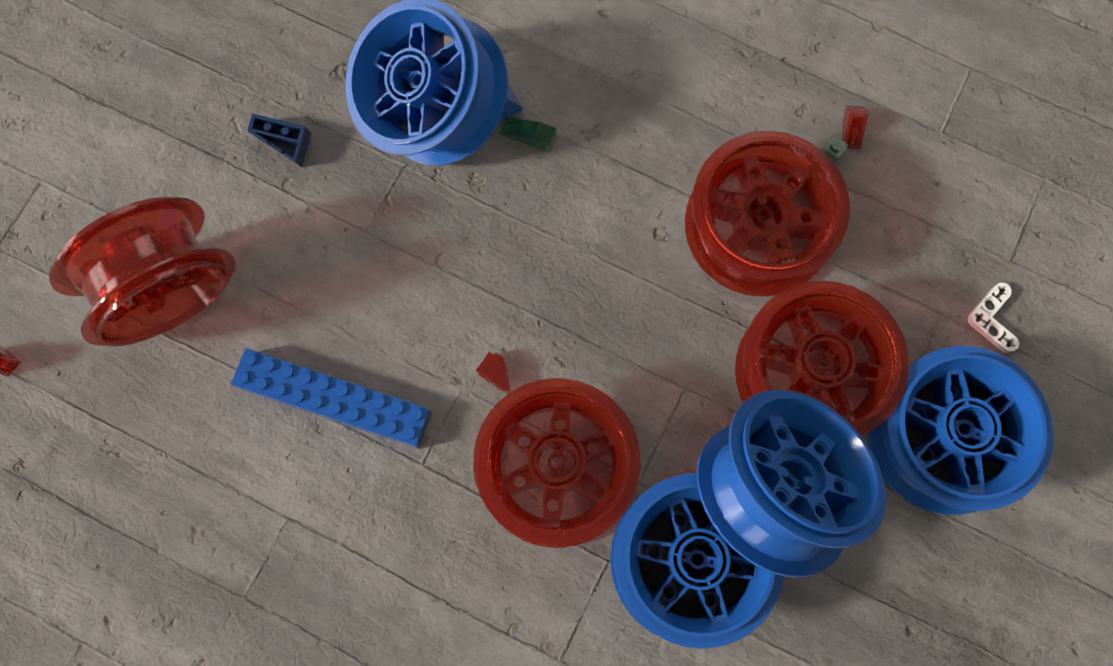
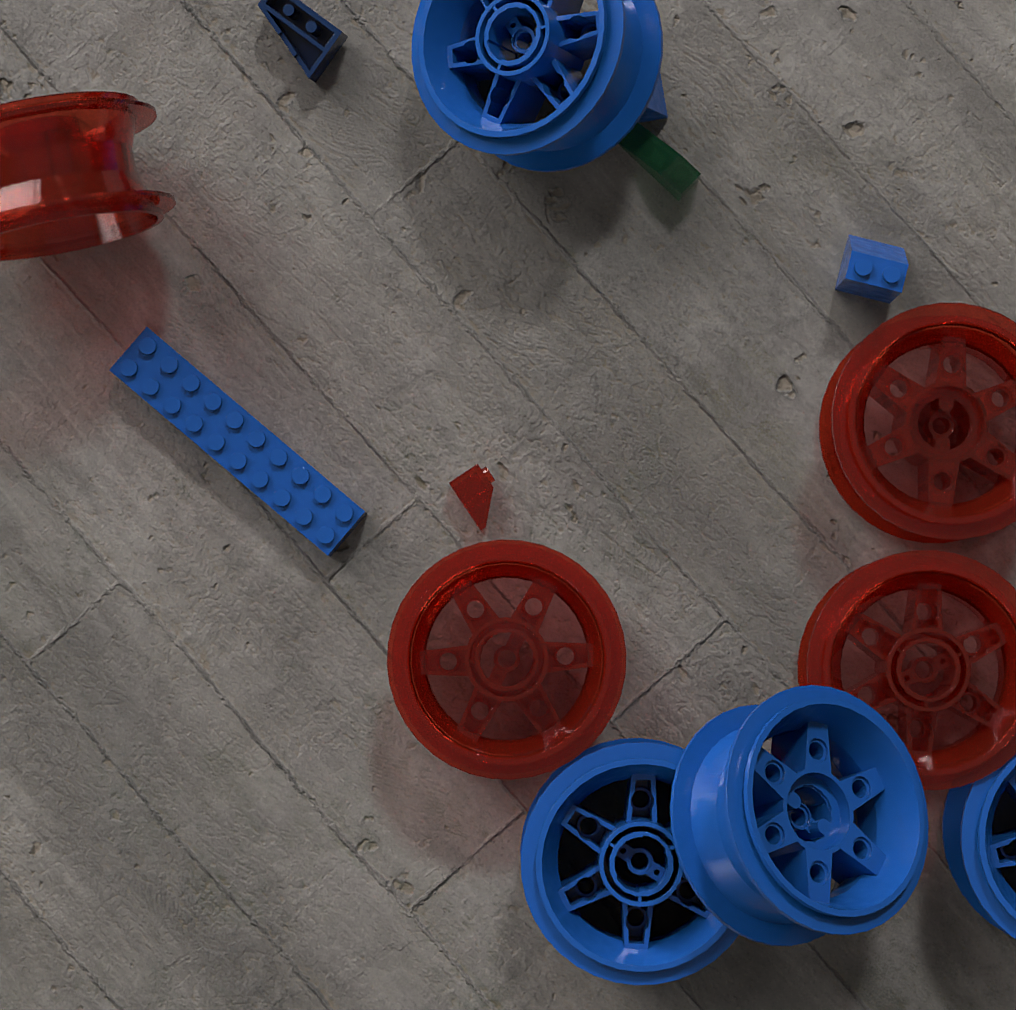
camera: 25 degrees right, 10 degrees up
(682, 147) = (872, 269): none -> blue slope

